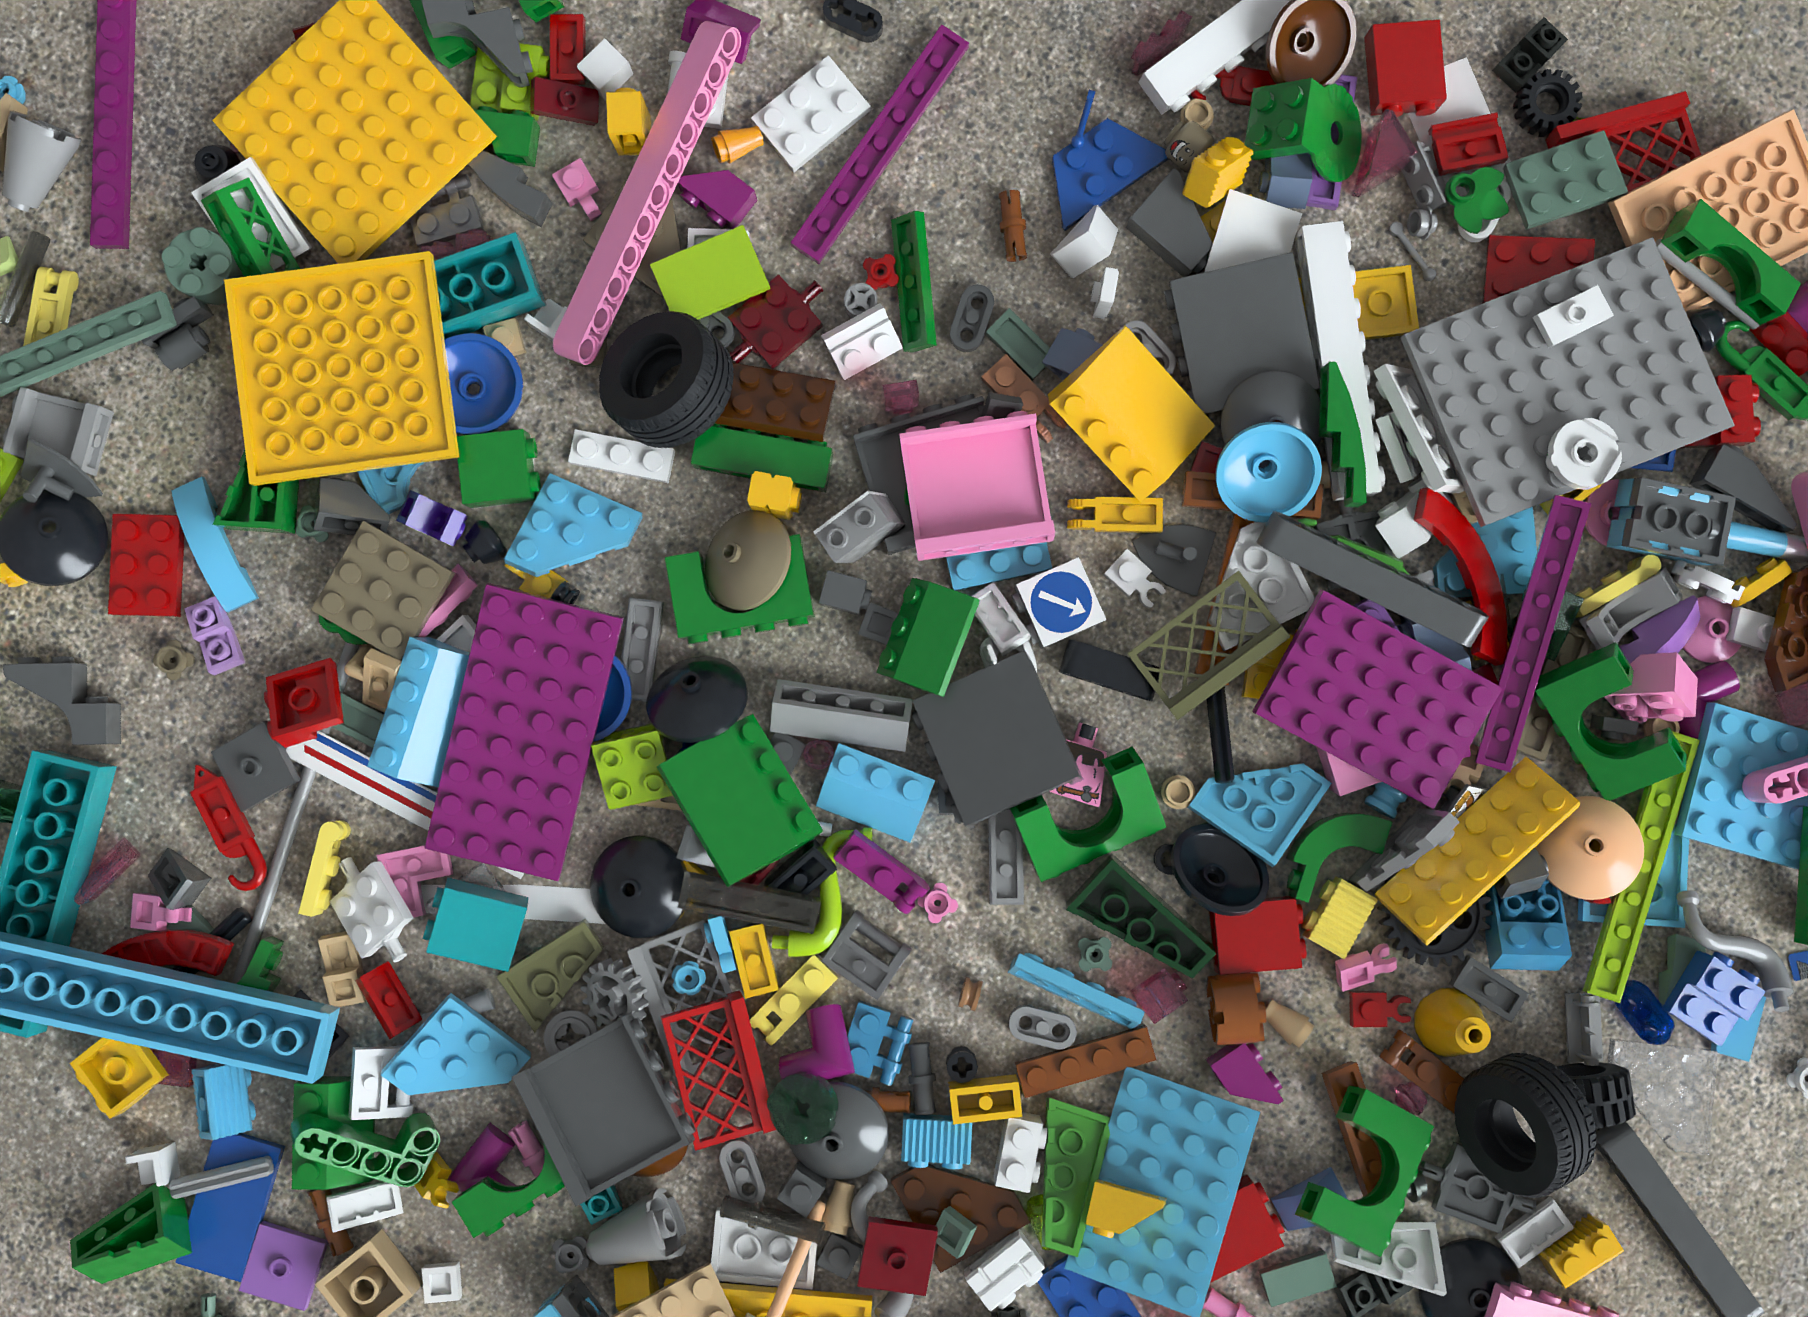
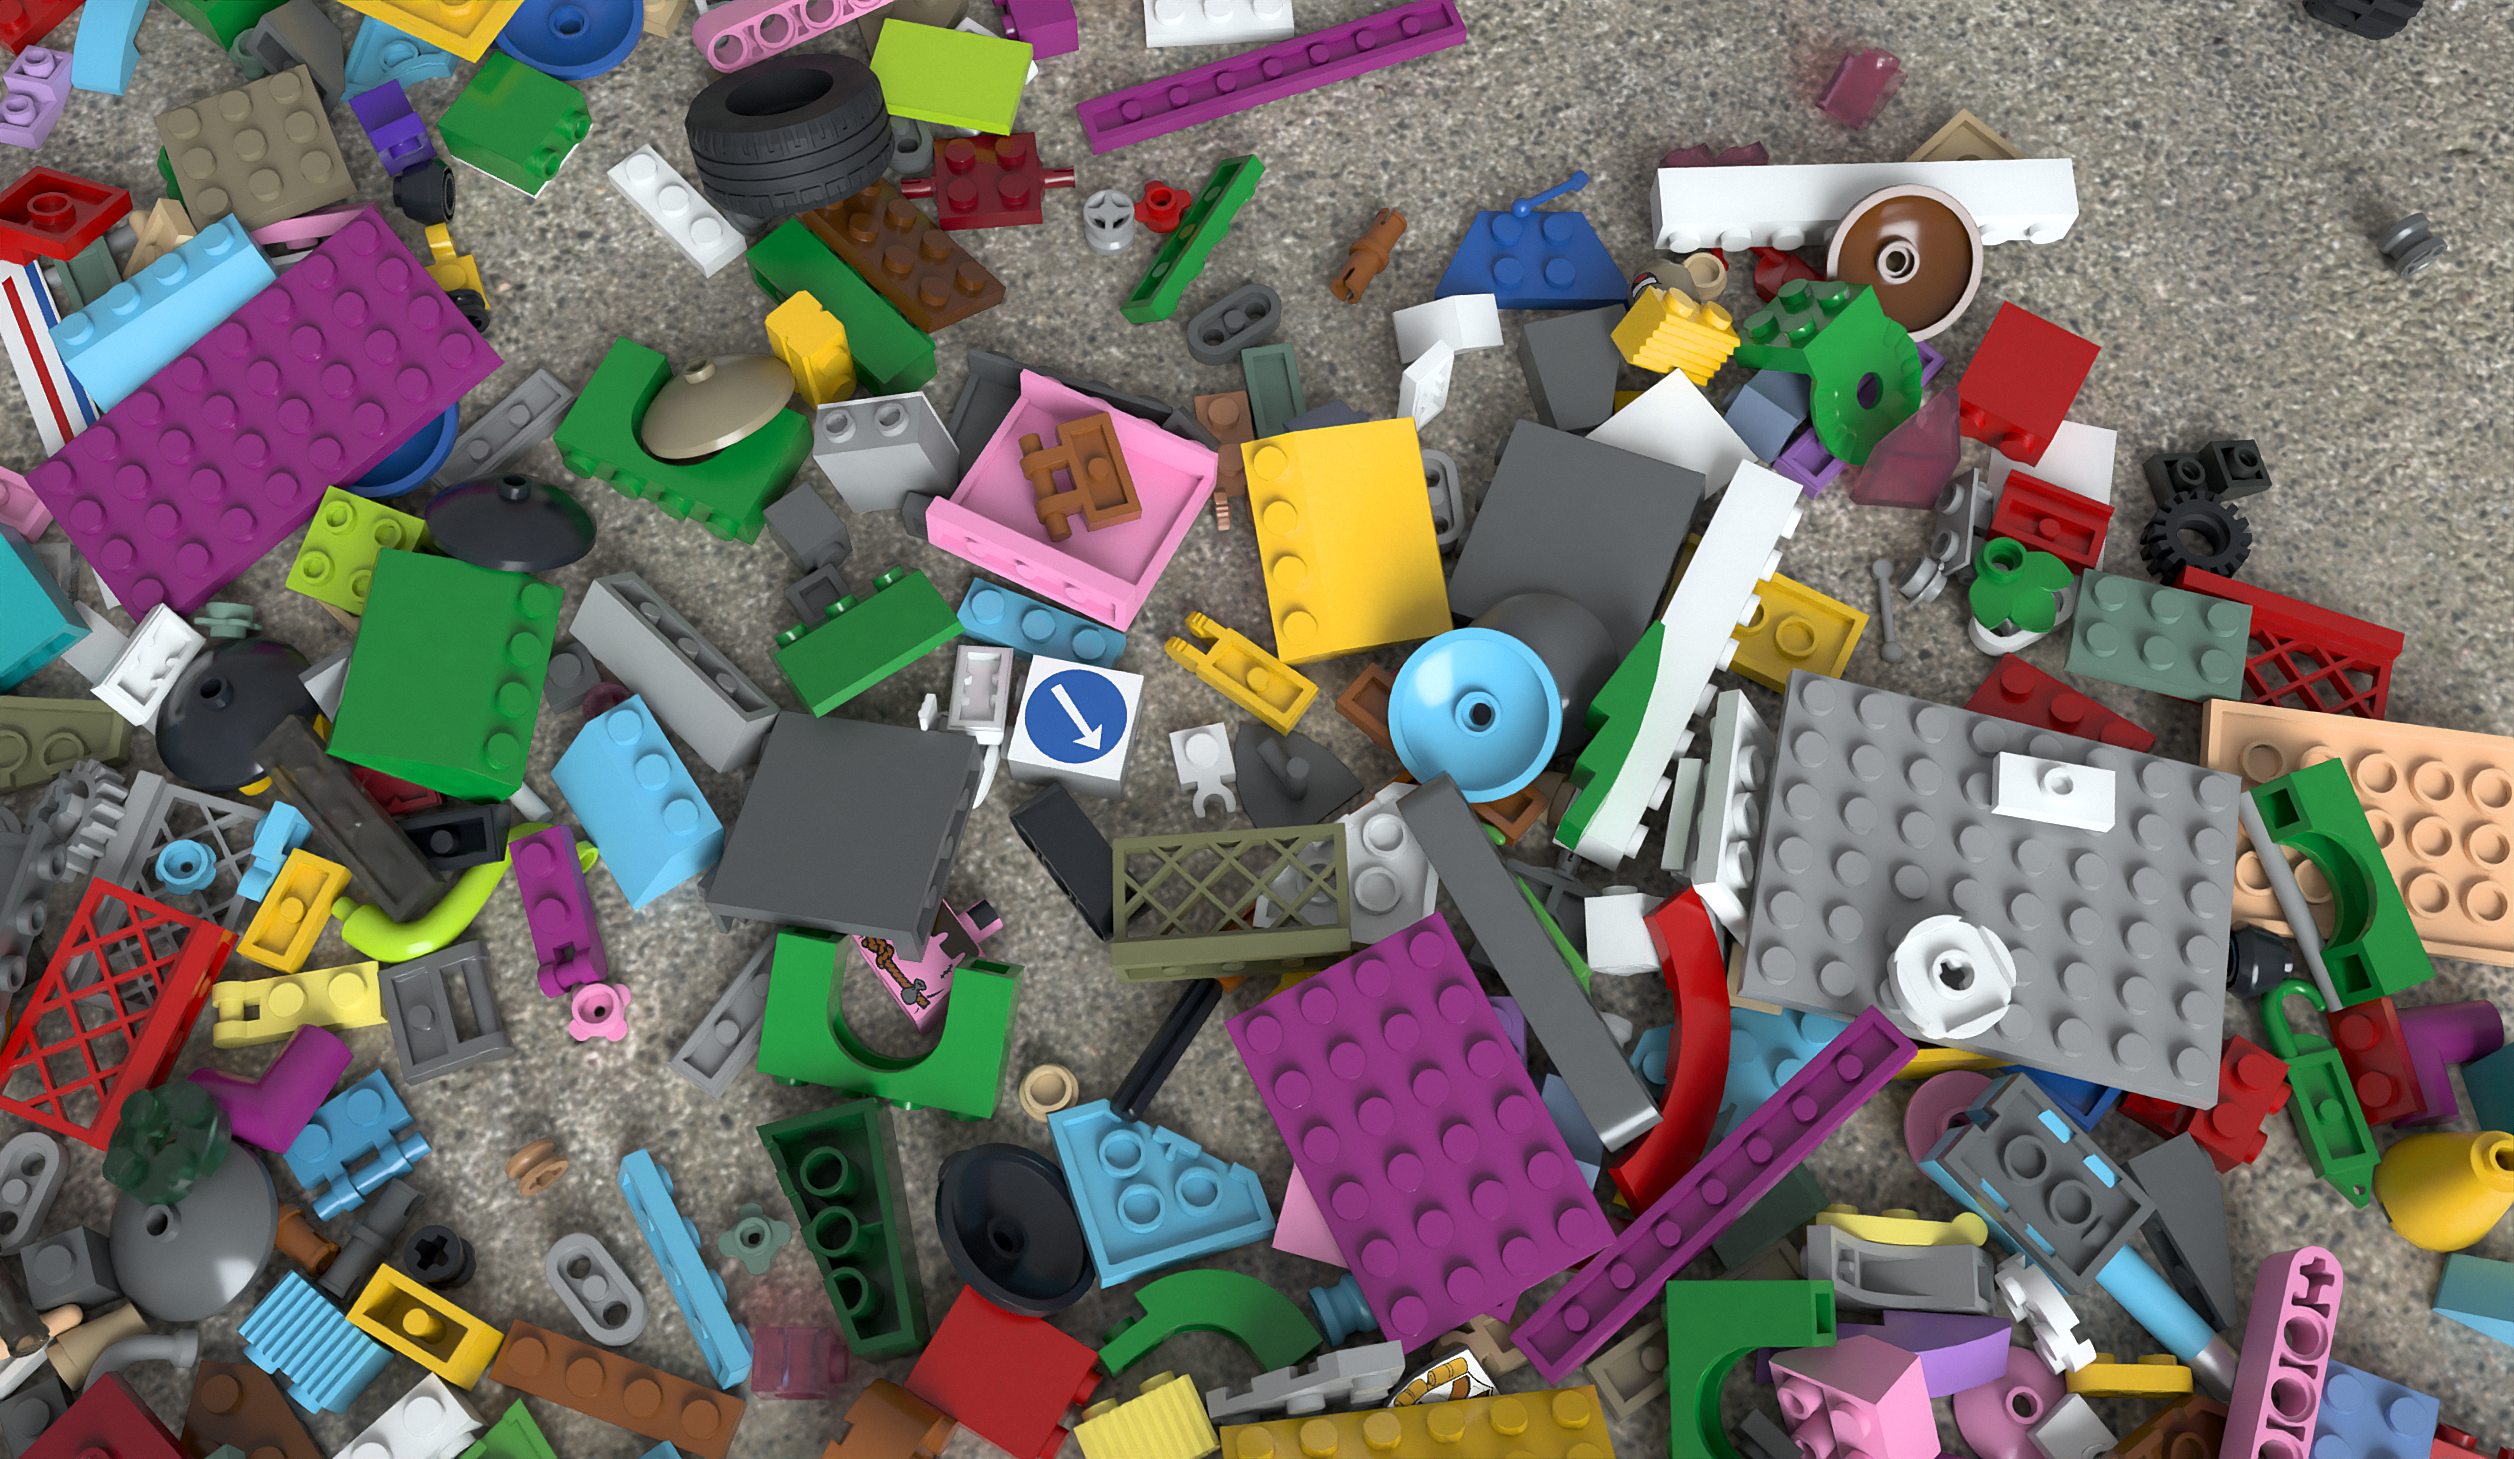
camera: 30 degrees right, 20 degrees down
(569, 528) = (539, 239): medium azure plate -> none
(578, 896) = (148, 664): none -> white plate
(593, 845) = (228, 620): none -> sand green plate
(862, 341) = (1073, 261): white plate -> none
(901, 397) = (1067, 339): clear pink plate -> none
(978, 465) = (1096, 471): none -> dark orange plate

